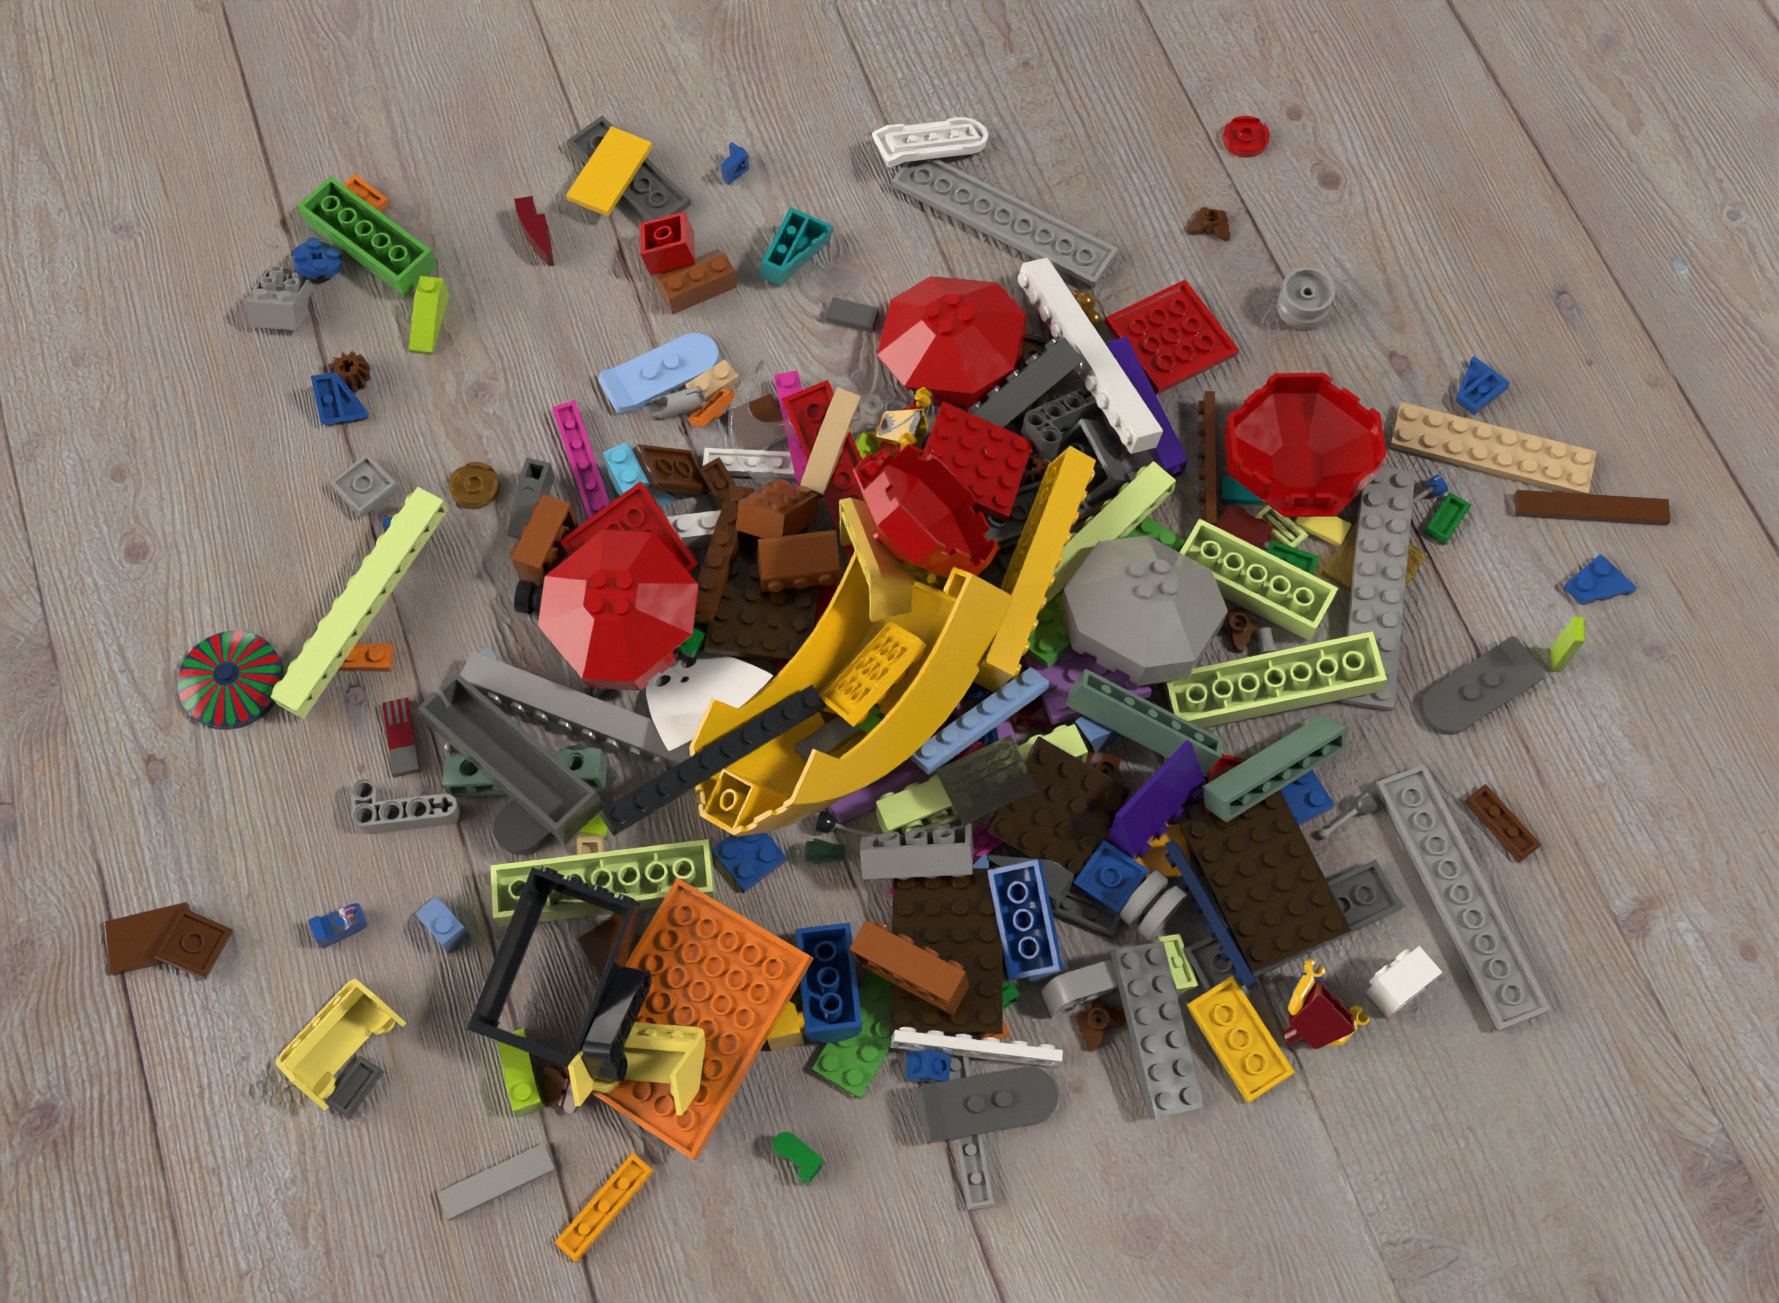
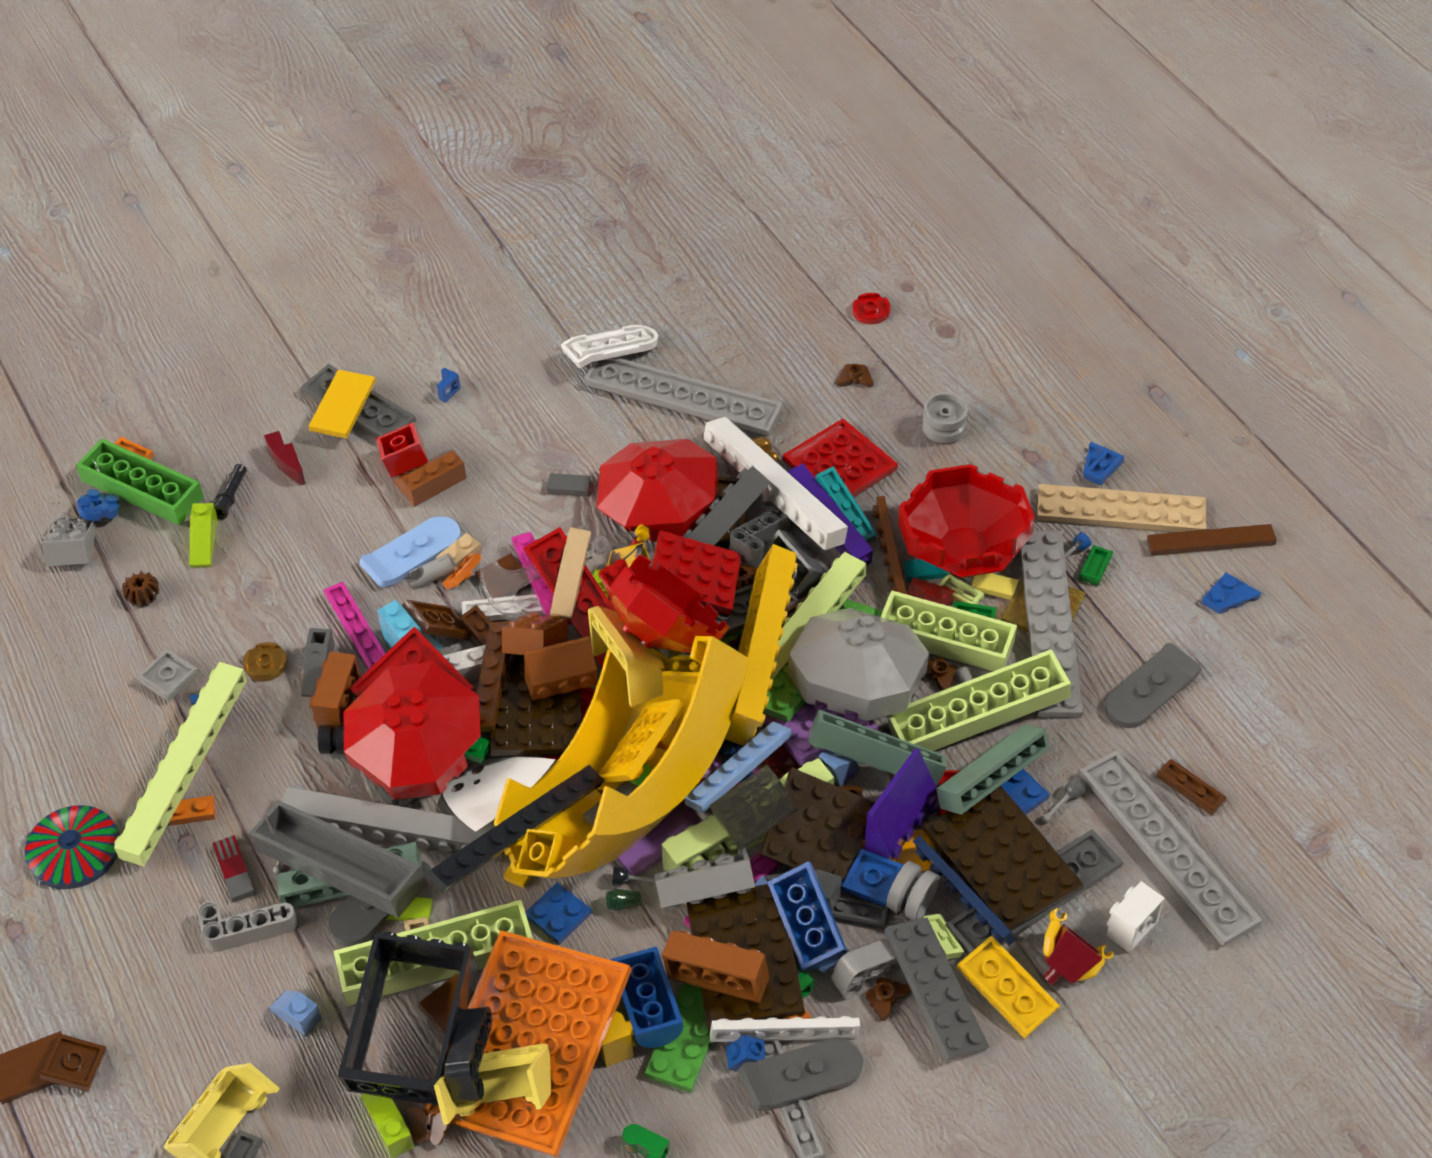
camera: 10 degrees left, 15 degrees down
(335, 399) = (132, 610): blue wing -> none
(338, 925) = (202, 1026): blue leg -> none
(462, 270) = (226, 497): none -> black pin
(794, 246) = (510, 437): teal wedge -> none
(1167, 392) = (844, 500): none -> teal tile
(1567, 644) = (1212, 638): lime tile -> none

